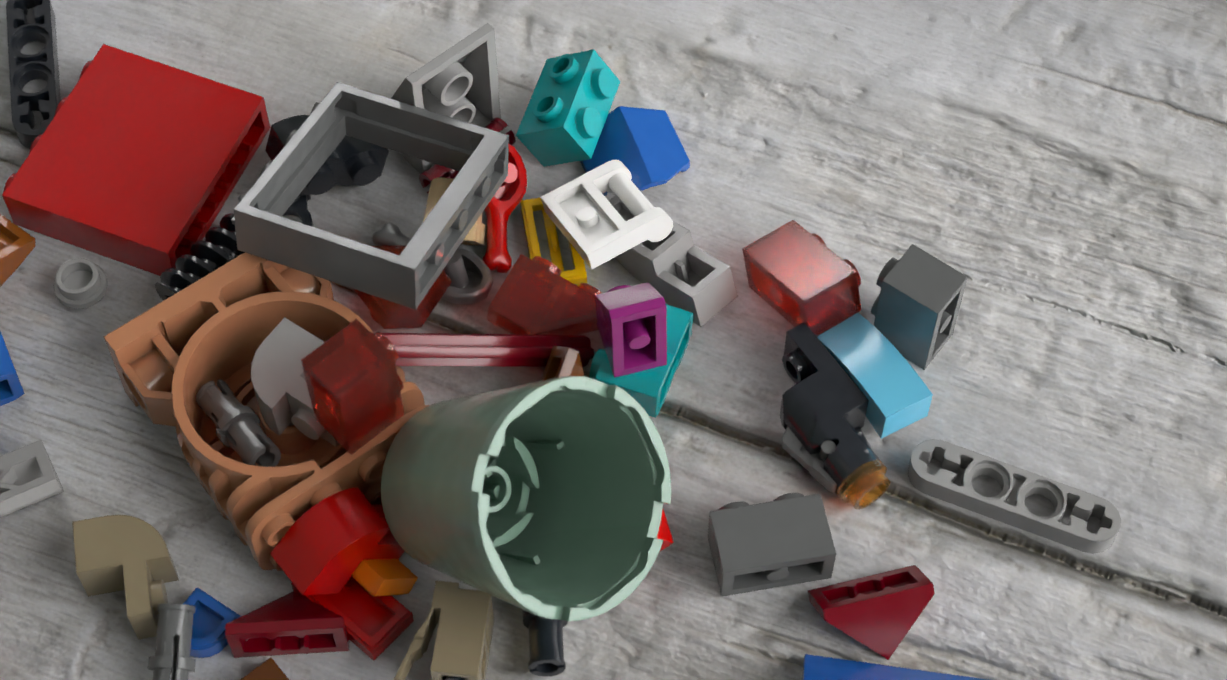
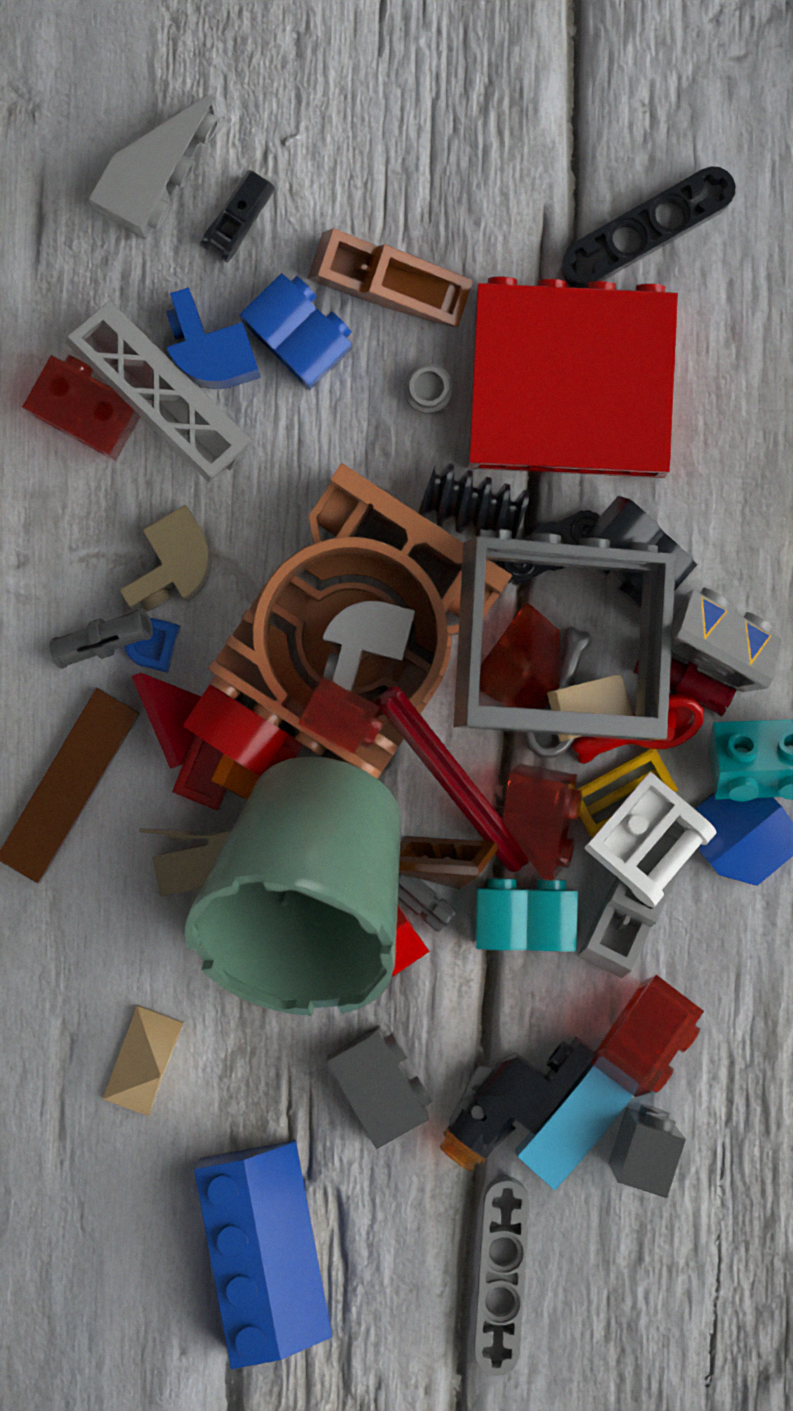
camera: 65 degrees right, 30 degrees up
(237, 425) = (317, 604): dark grey pin -> none
(633, 328) = (524, 910): magenta slope -> none
(876, 607) = (357, 1187): dark red slope -> none

